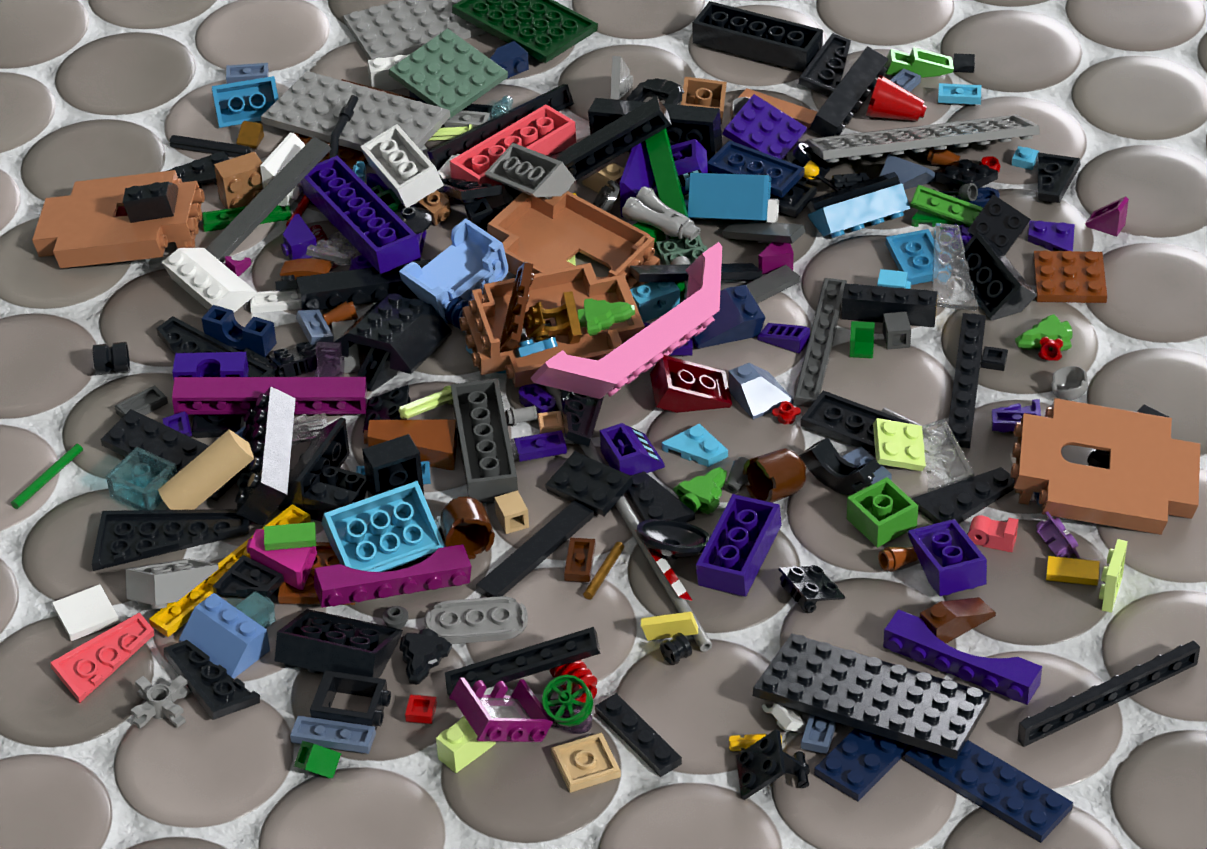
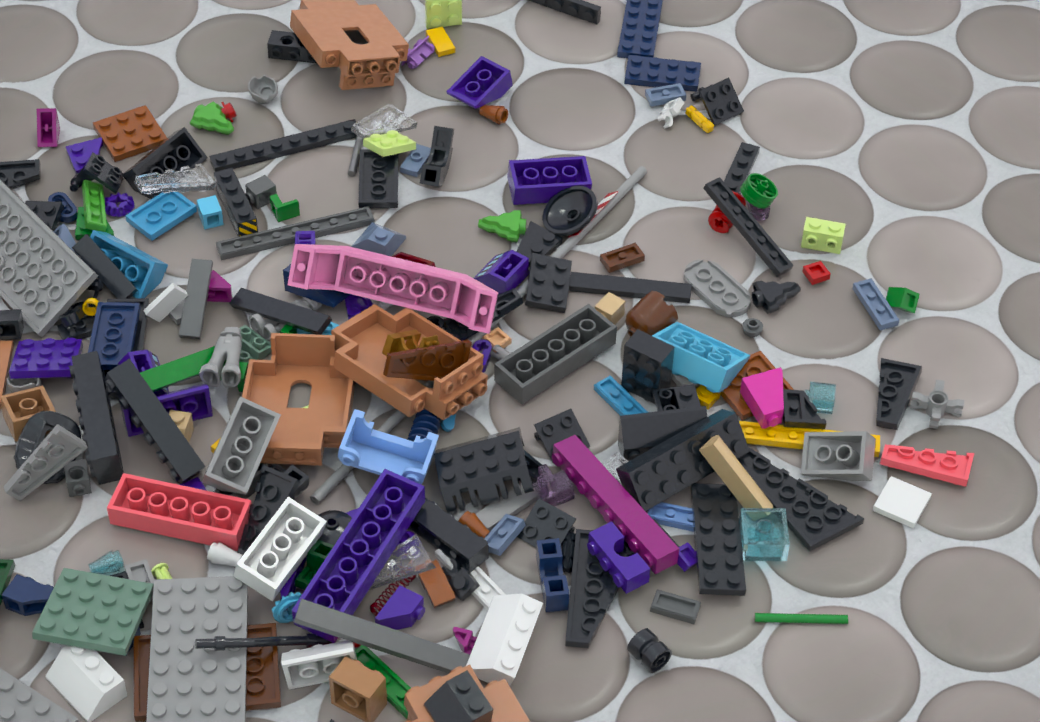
camera: 125 degrees left, 5 degrees up
(226, 635) = (854, 402): medium blue slope -> none
(290, 536) = (758, 385): bright green tile -> none
(335, 644) = (804, 339): black slope -> none
(346, 585) = (764, 348): magenta arch -> none
(354, 685) = (844, 324): black window -> none
(426, 403) = (542, 405): yellowish green axle -> none
(433, 438) = (579, 391): dark orange slope -> none
(500, 715) = (794, 217): magenta window -> none
(540, 445) = (525, 326): dark purple plate -> none
(557, 98) = (132, 545): black plate -> none
(585, 762) = (787, 183): tan tile -> none
(603, 314) = (387, 321): bright green rock -> none
(603, 570) = (612, 246): pearl gold bar -> none
(607, 196) = (214, 412): dark grey tile -> none
(668, 625) = (648, 183): light yellow tile -> none
(675, 648) = (660, 177): black wheel -> none
(697, 445) = (459, 251): medium azure wing -> none
(728, 196) = (167, 322): dark azure slope -> none
(736, 478) = (473, 213): dark grey cone -> none
(773, 283) = (240, 280): dark grey tile -> none
(775, 475) = (471, 186): reddish brown cylinder -> none
(786, 412) = (390, 218): red plate -> none
(808, 586) = (553, 142): black hinge -> none
(873, 695) = (625, 79): black plate -> none
(882, 512) = (469, 125): bright green brick -> none
(955, 617) = (532, 71): reddish brown slope -> none
(965, 497) = (422, 110): black wing -> none
(967, 192) = (70, 203): dark grey hinge -> none
(993, 533) = (436, 78): coral leg -> none
(994, 358) = (251, 138): black tile -> none
(1006, 417) = (311, 105): dark purple wing -> none
(1006, 676) = (559, 37): dark purple arch -> none

